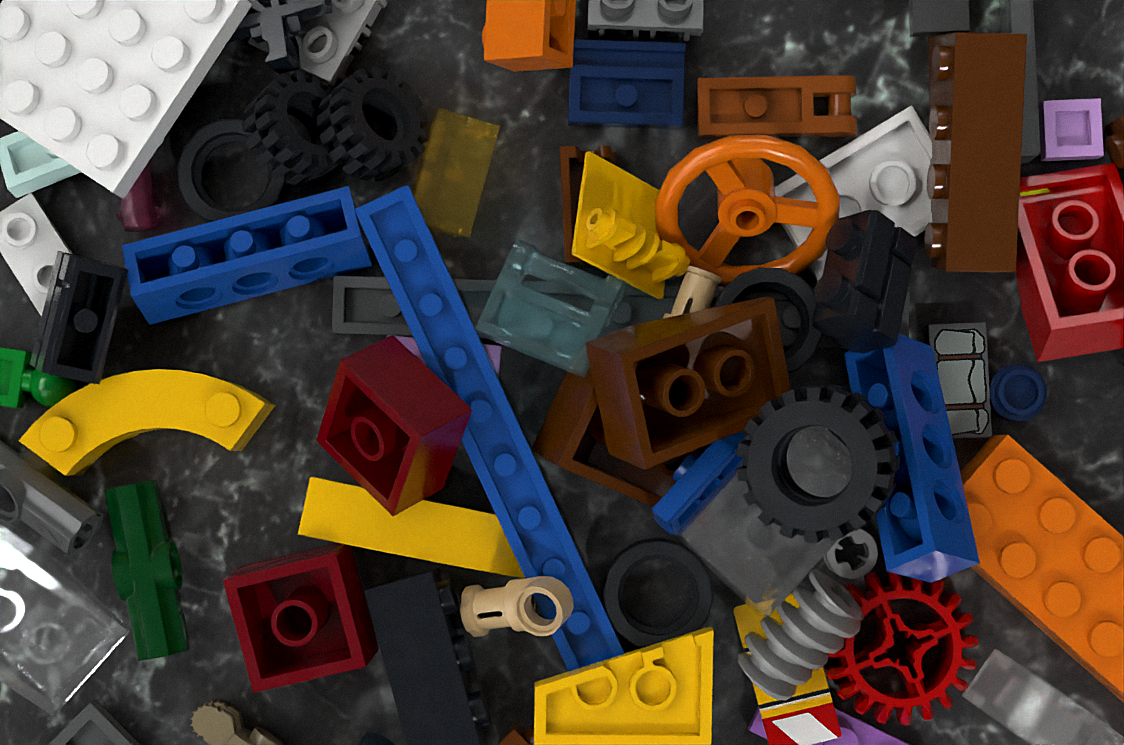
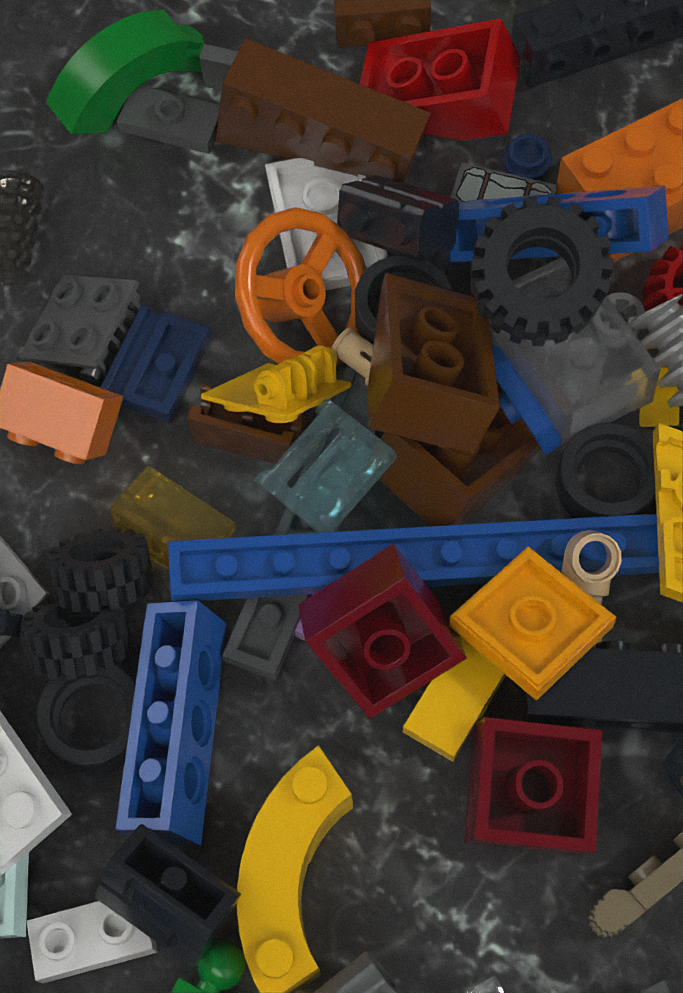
camera: 70 degrees left, 20 degrees down
(138, 207) = (87, 820): clear pink pin -> none
(147, 570) = (439, 932): dark green piece -> none
(448, 568) = (532, 622): none -> light orange plate
(775, 106) = (210, 284): dark orange plate -> none
(1070, 129) = (334, 55): lavender plate -> none

